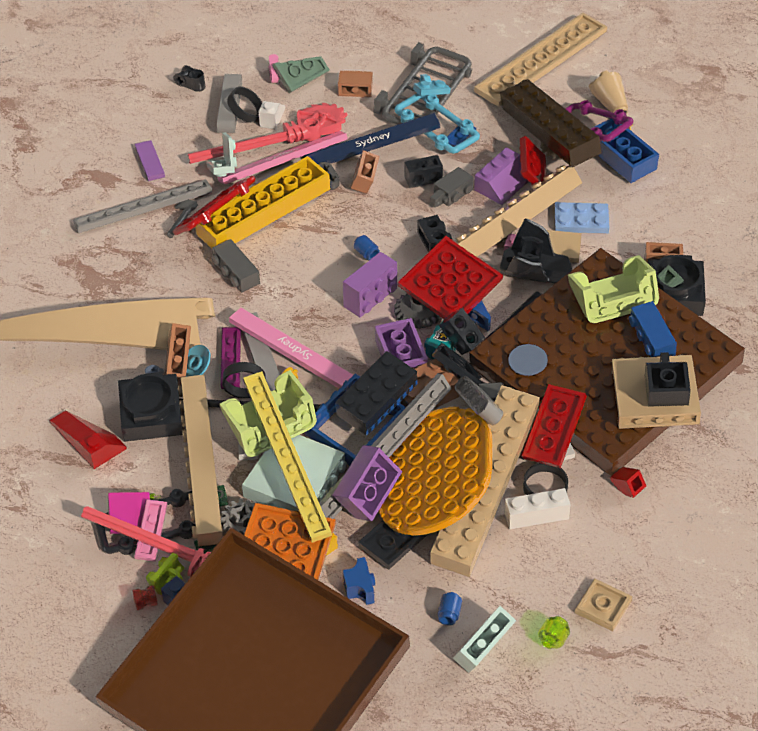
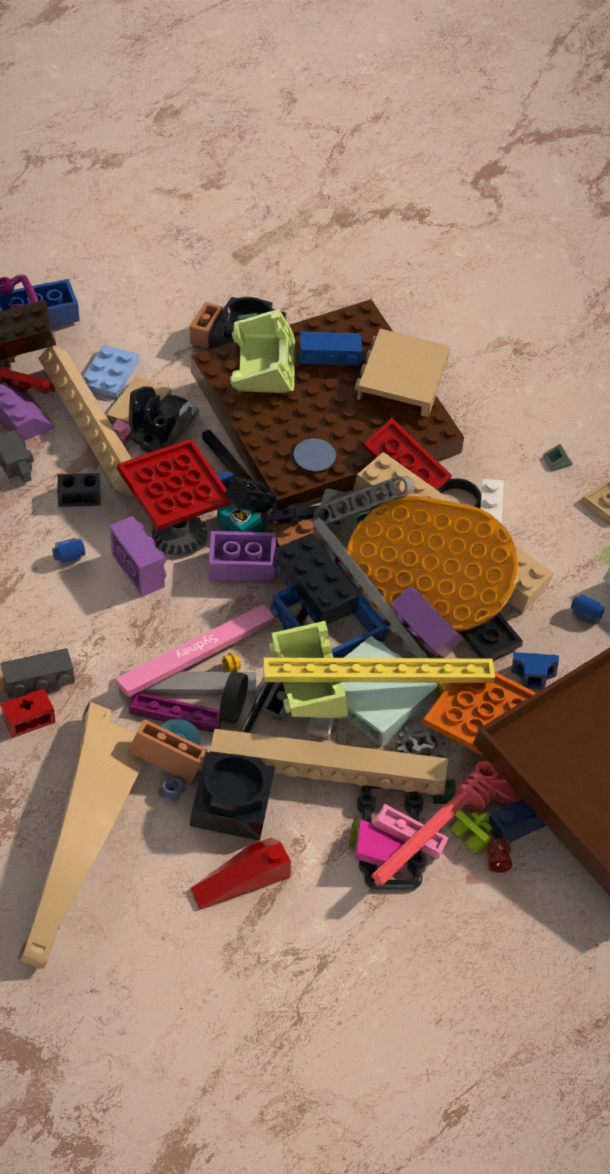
camera: 75 degrees left, 0 degrees up
(195, 271) = (28, 713): none -> red brick
(628, 481) = (477, 439): red brick -> none
(640, 551) = (557, 458): none -> sand green slope
(667, 382) = (415, 349): black hinge -> none

